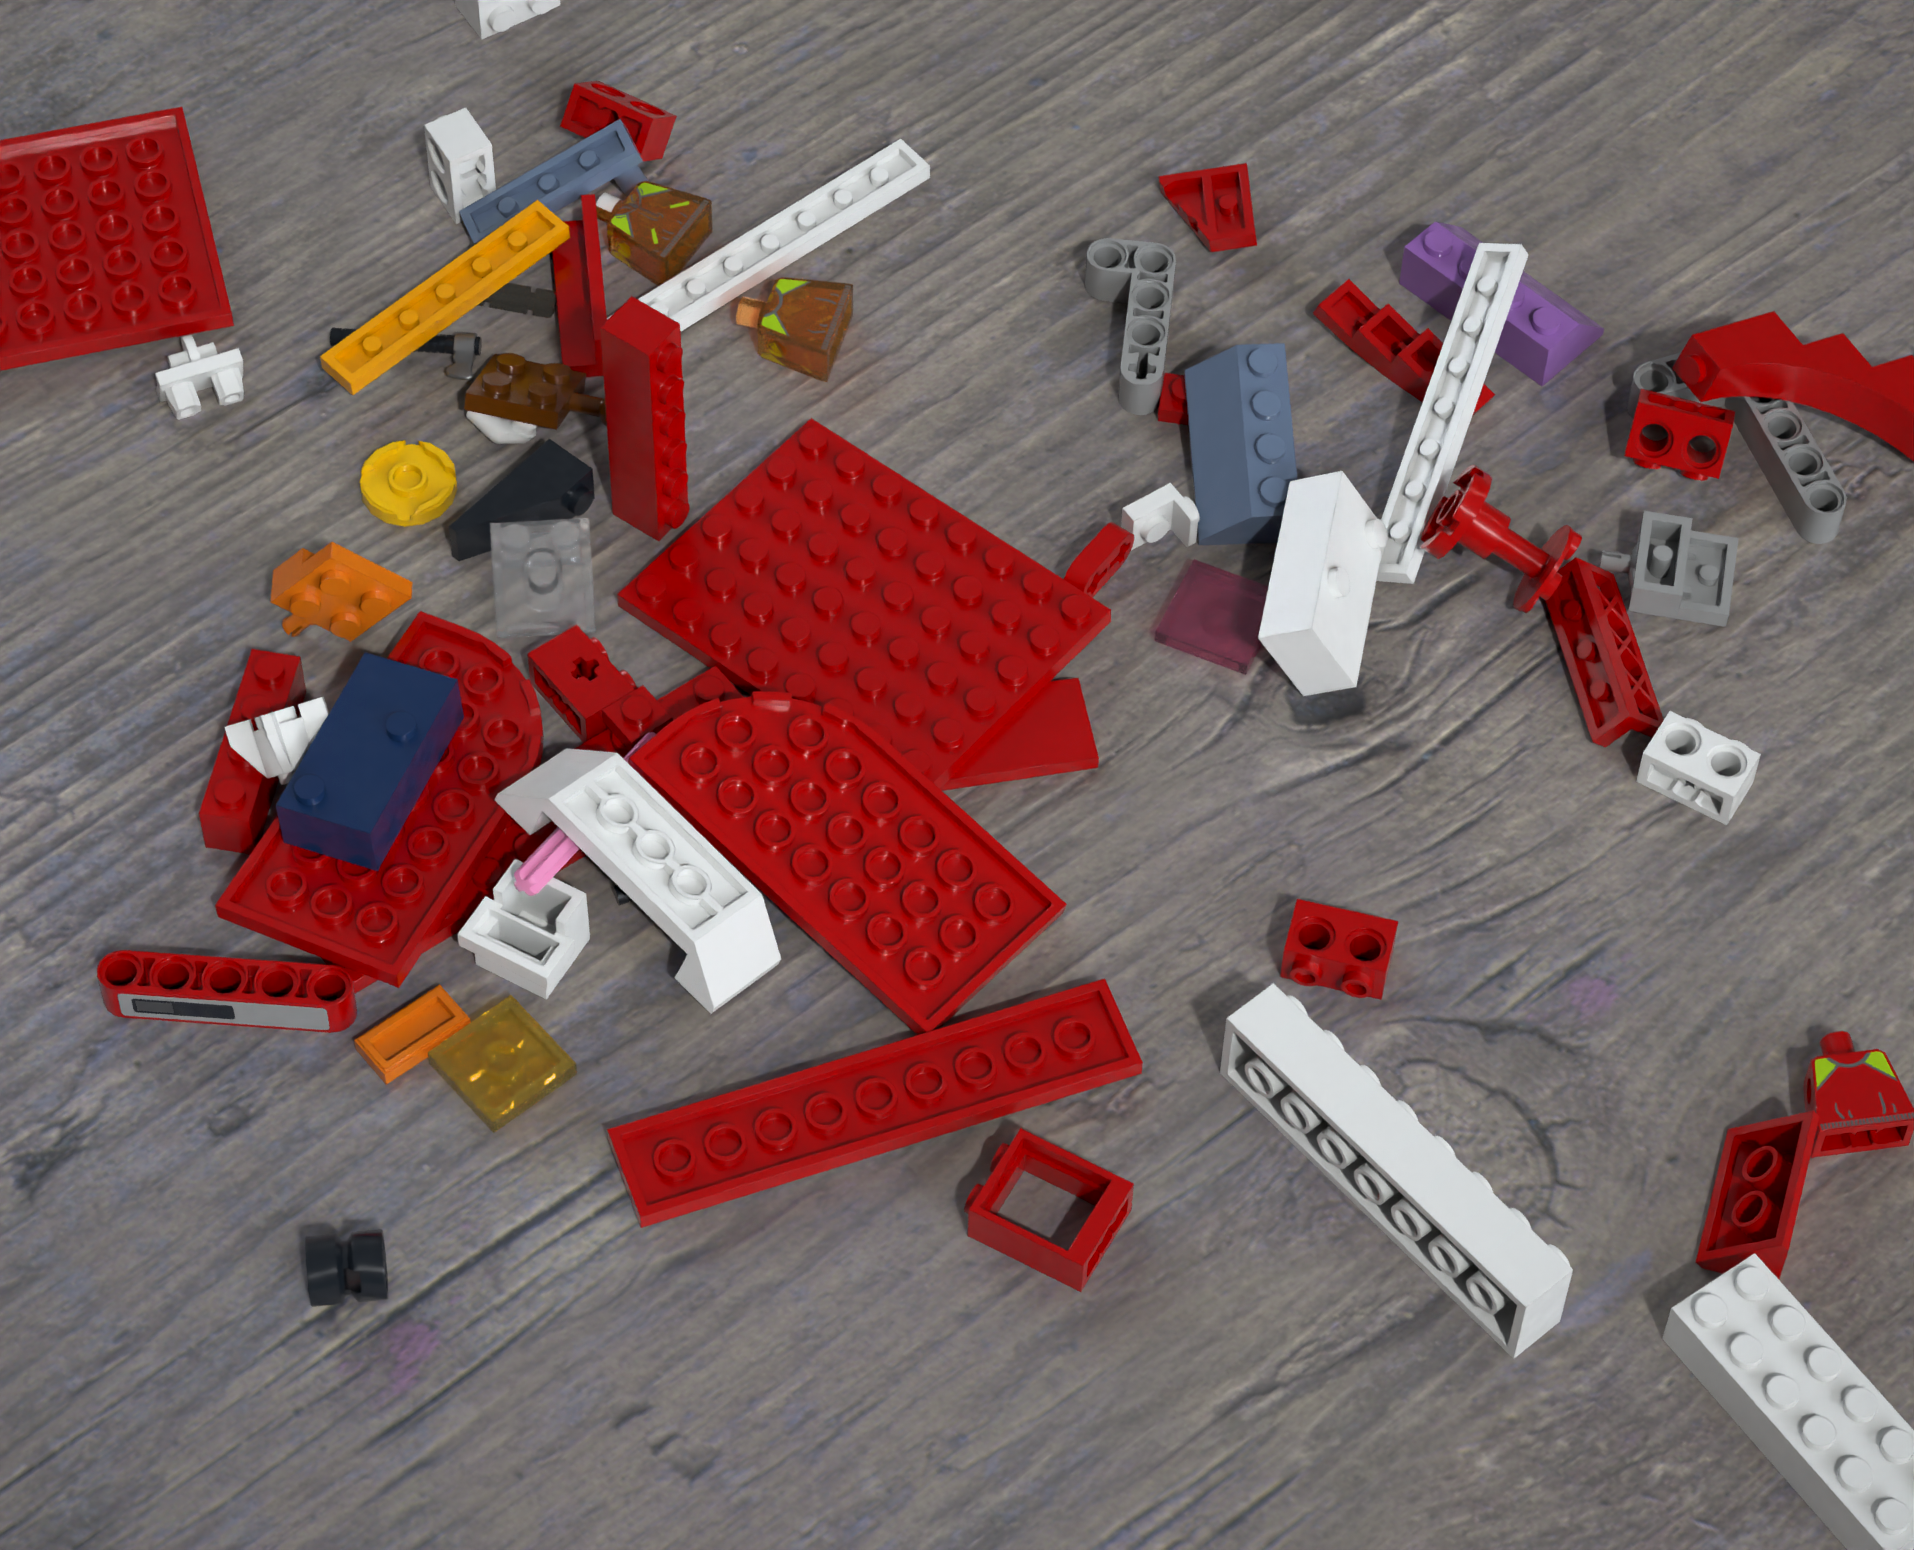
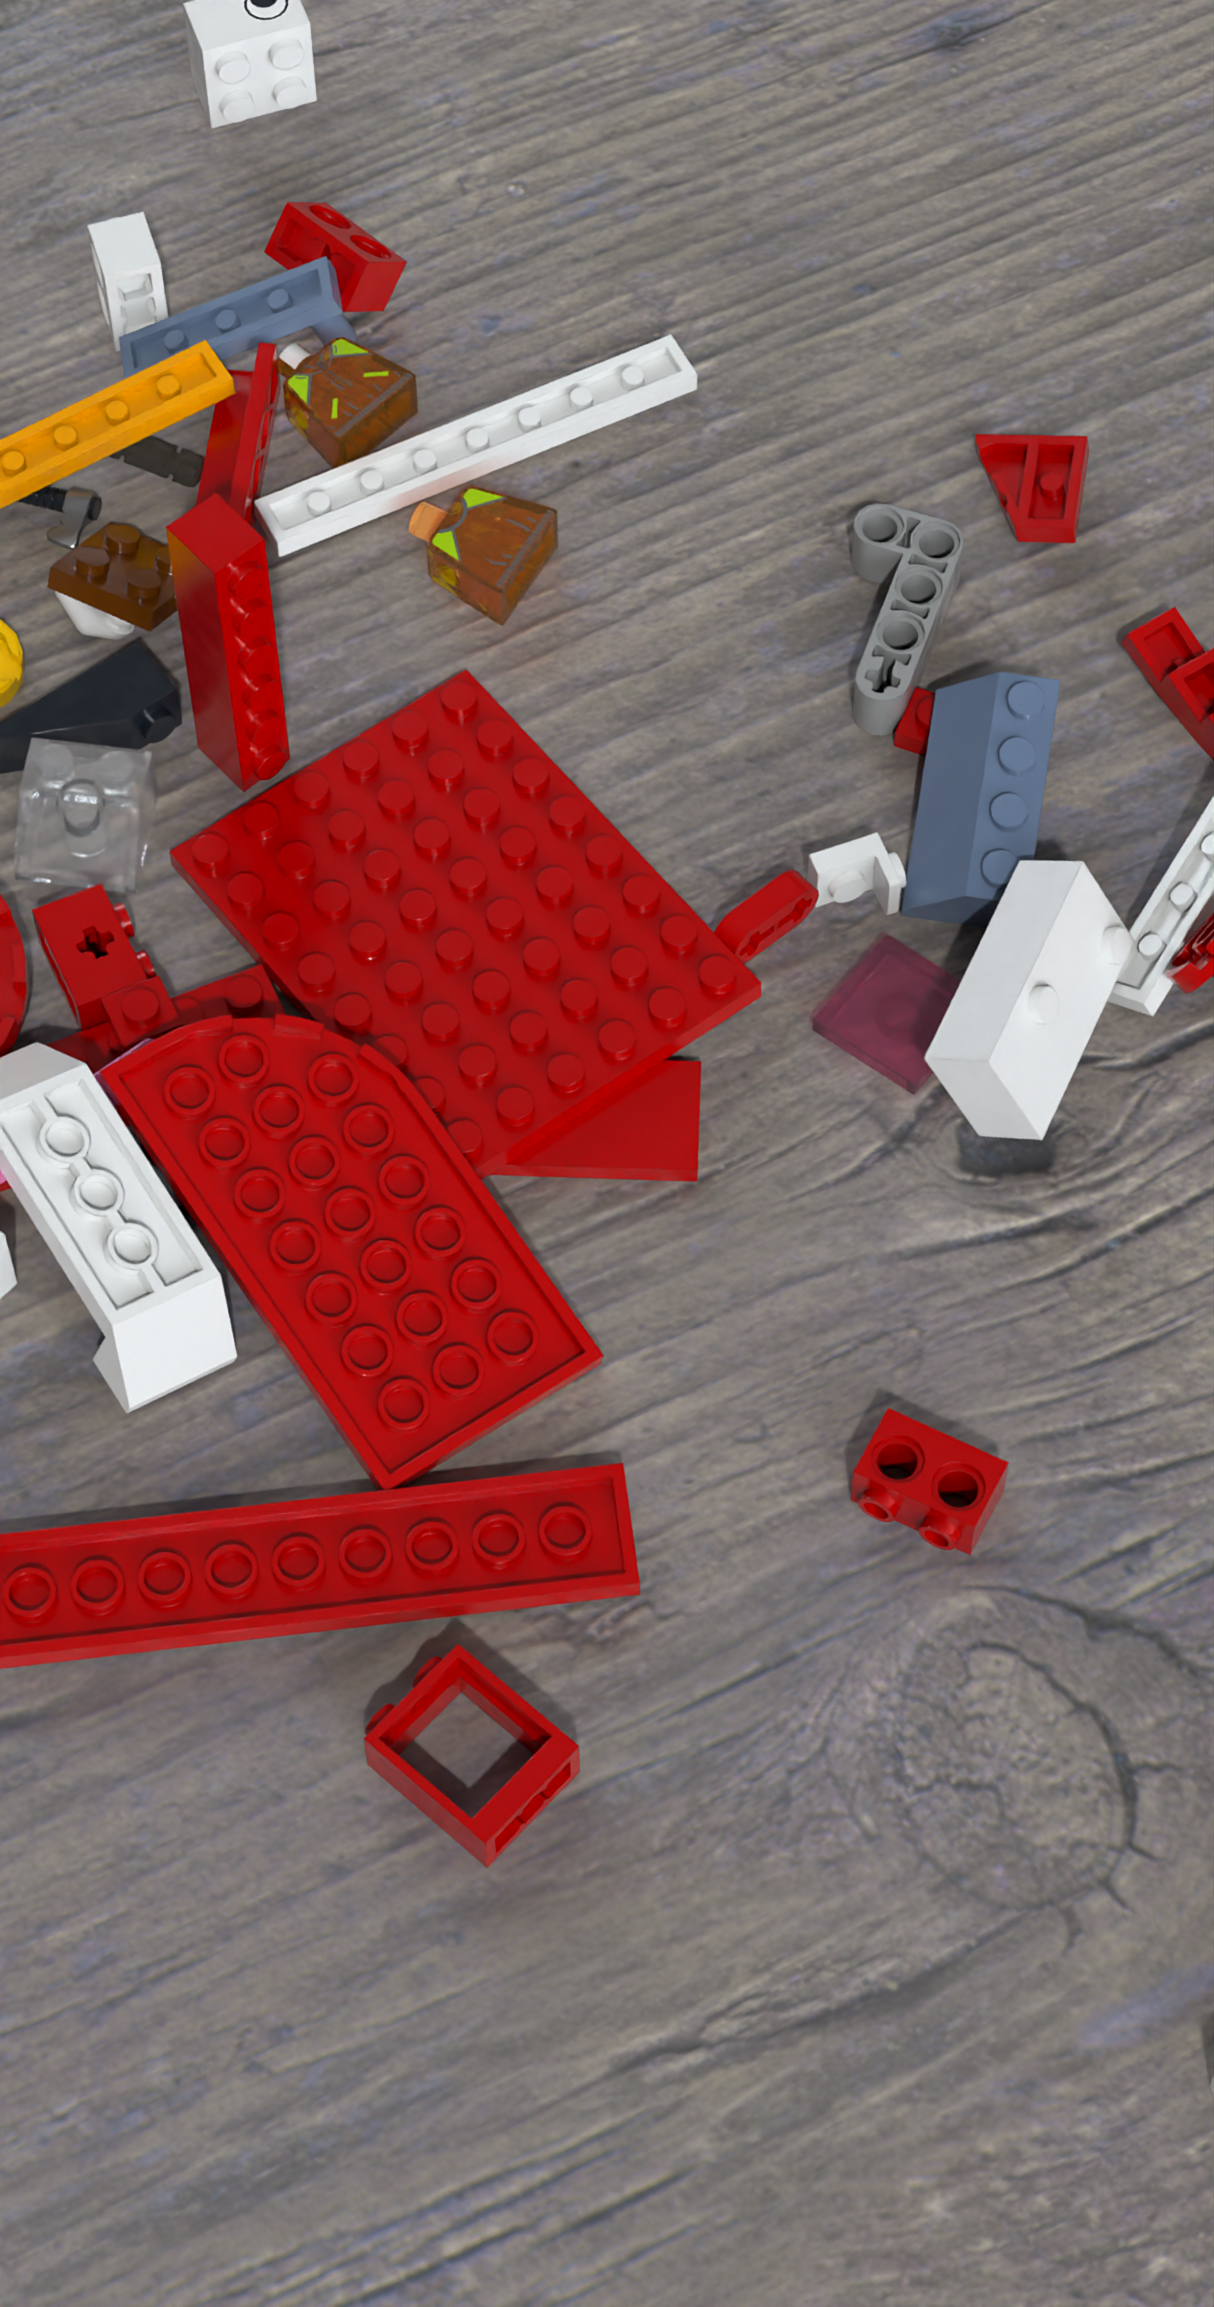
camera: 15 degrees right, 5 degrees up
(1395, 1170) = (917, 1797): white brick -> none

